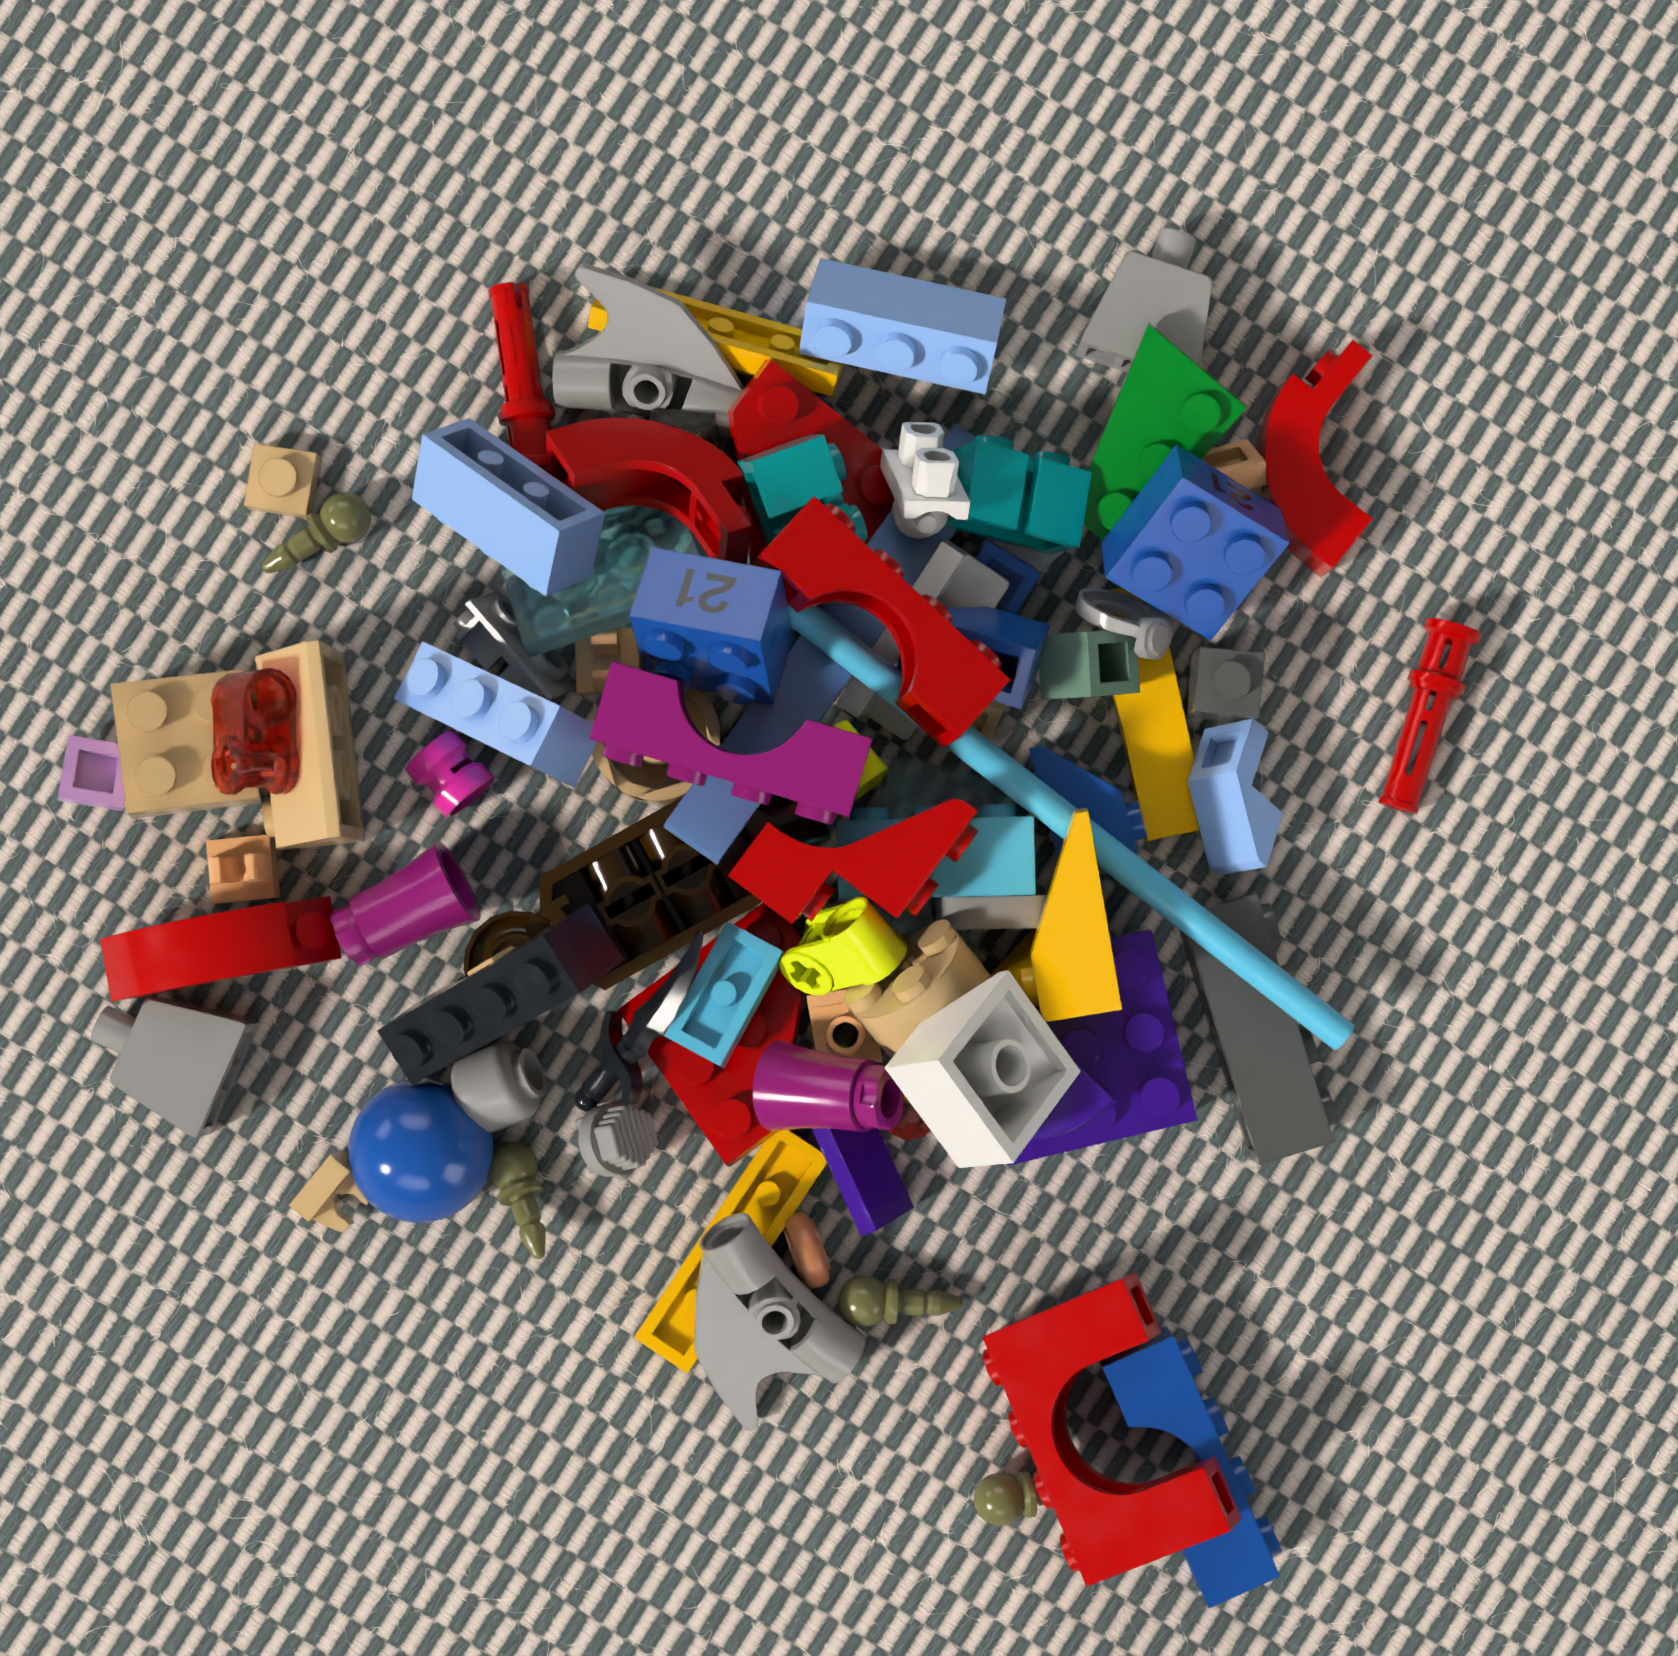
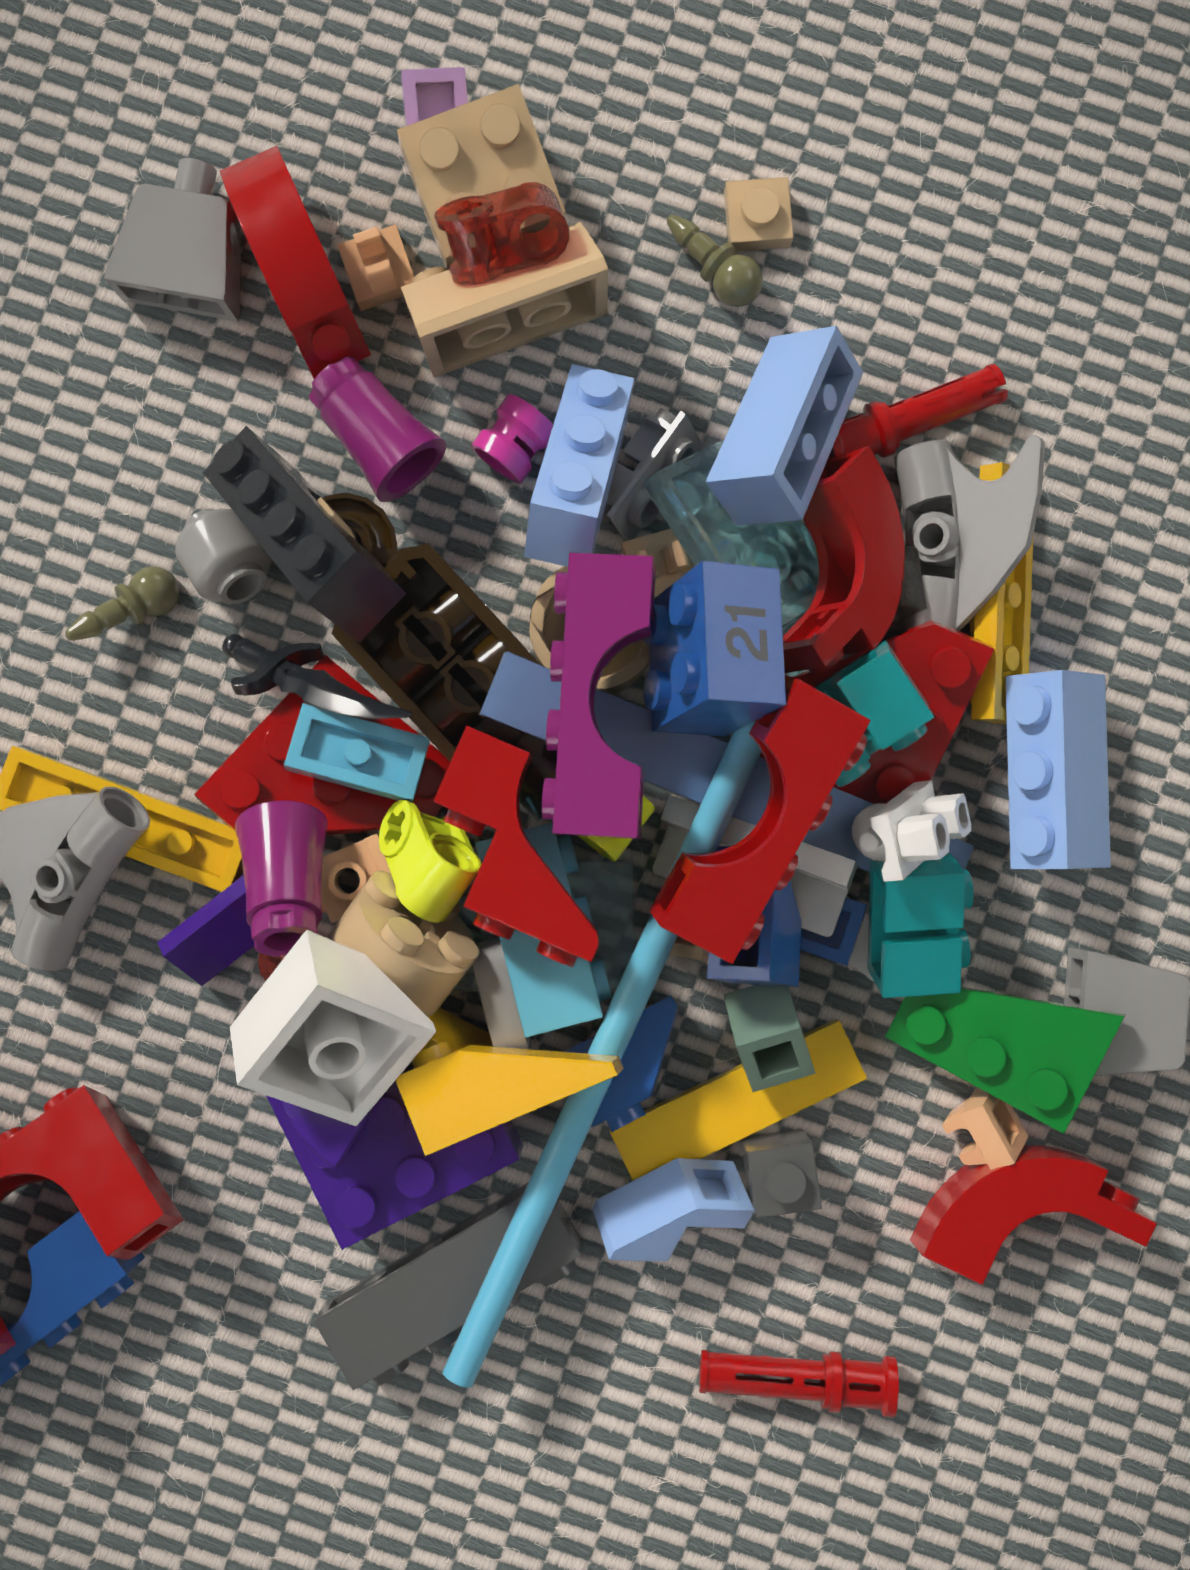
camera: 75 degrees right, 0 degrees up
(319, 1196) = (80, 415): tan tile -> none
(418, 1152) = (141, 495): blue piece -> none
(616, 1138) = (198, 682): light grey piece -> none
(807, 1249) = (134, 892): nougat piece -> none
(867, 1301) = (99, 962): olive bar -> none
(1144, 622) = (823, 1082): light grey piece -> none
(1194, 543) = (915, 1113): blue brick -> none

